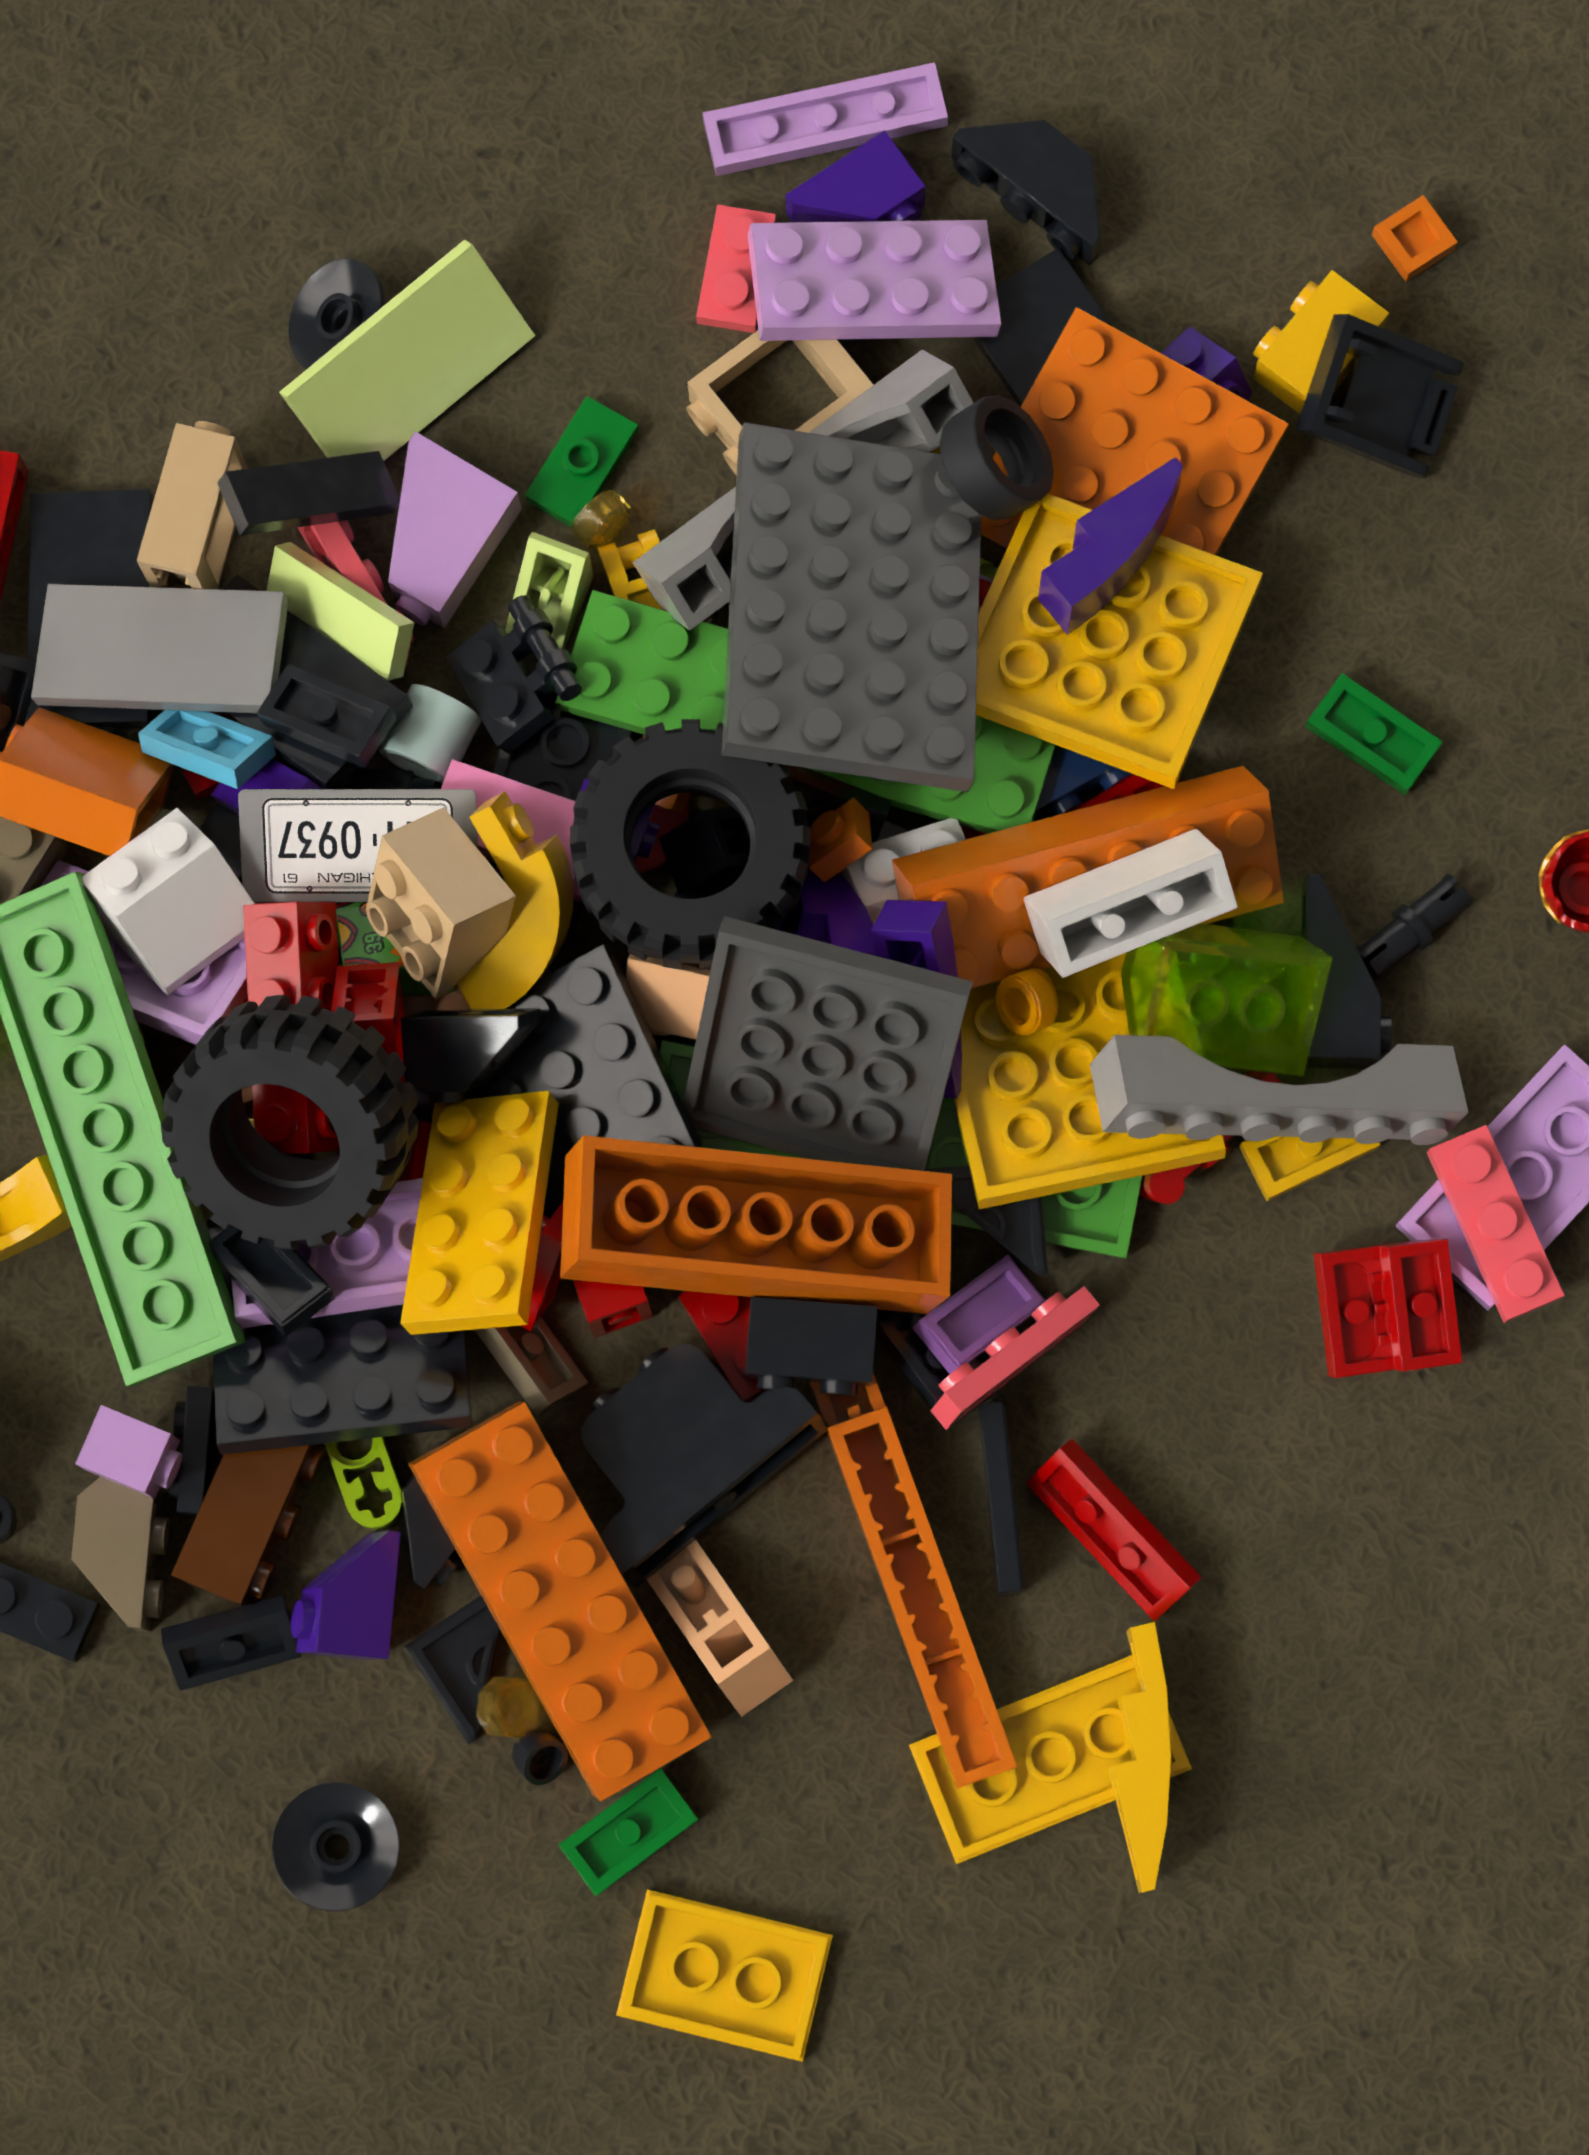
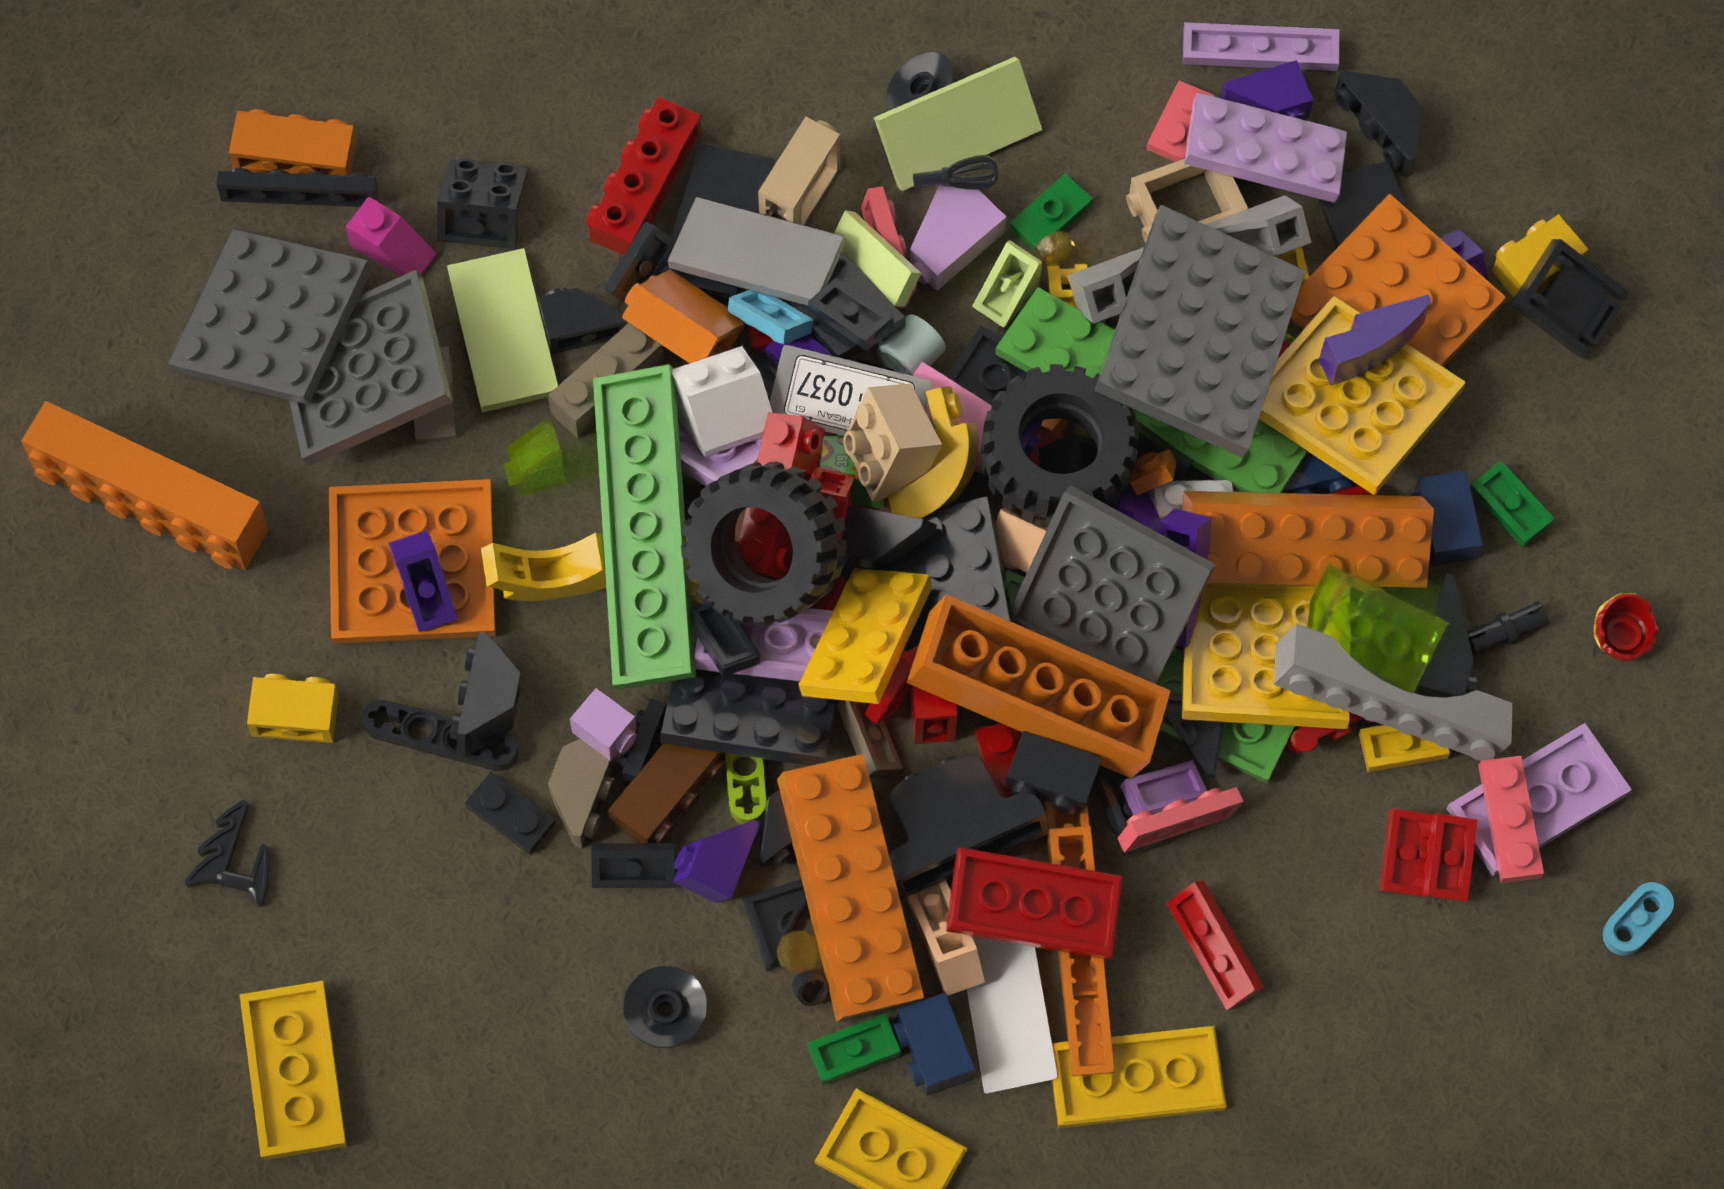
camera: 10 degrees right, 10 degrees down
(308, 492) = (873, 181): black tile -> none
(409, 456) = (947, 178): none -> black piece
(499, 682) = (963, 328): black plate -> none
(744, 1795) = (934, 1045): none -> dark blue brick
(835, 1552) = (1034, 903): none -> red tile
(841, 1709) = (1010, 1017): none -> white sticker
(977, 474) = (1300, 275): black tyre -> none
(1001, 1499) = (1148, 907): black tile -> none
(1027, 1001) = (1246, 600): light orange tile -> none
(1130, 902) = (1327, 549): white brick -> none
(1144, 1782) = (1193, 1097): yellow slope -> none
(1299, 785) = (1455, 523): none -> dark blue brick
(1414, 238) = (1617, 211): orange plate -> none

